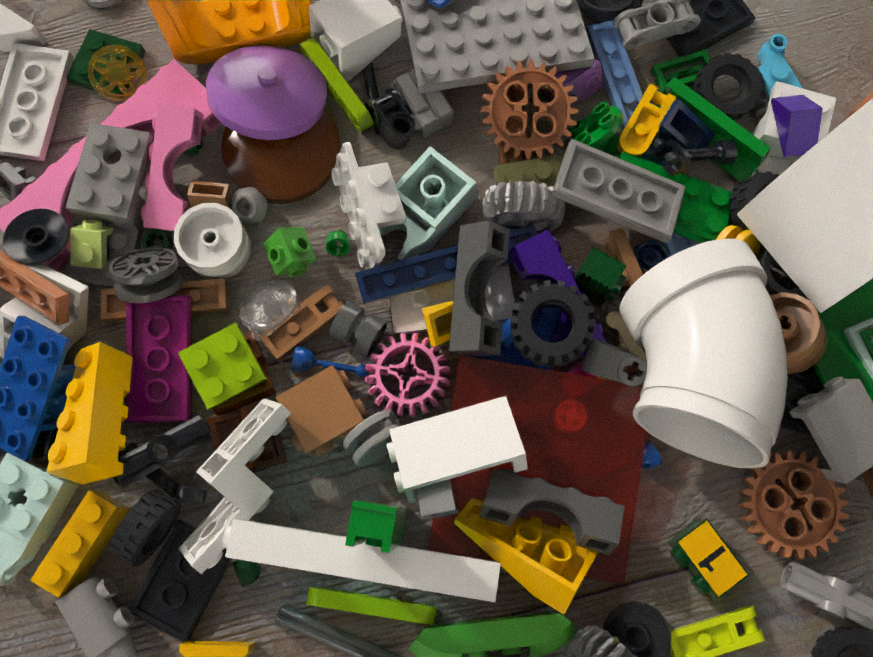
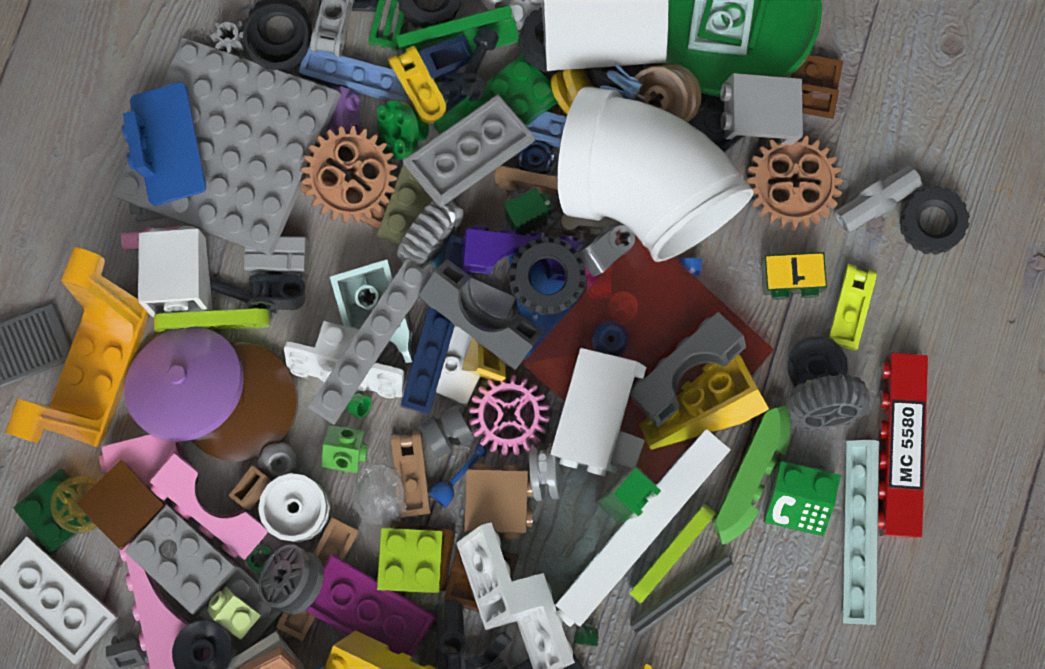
camera: 55 degrees left, 5 degrees up
(129, 98) = (121, 504): none -> reddish brown slope
(388, 206) = (369, 341): none -> light grey plate
(543, 417) = (617, 331): none -> dark blue plate
(778, 293) = (629, 84): none -> flat silver piece

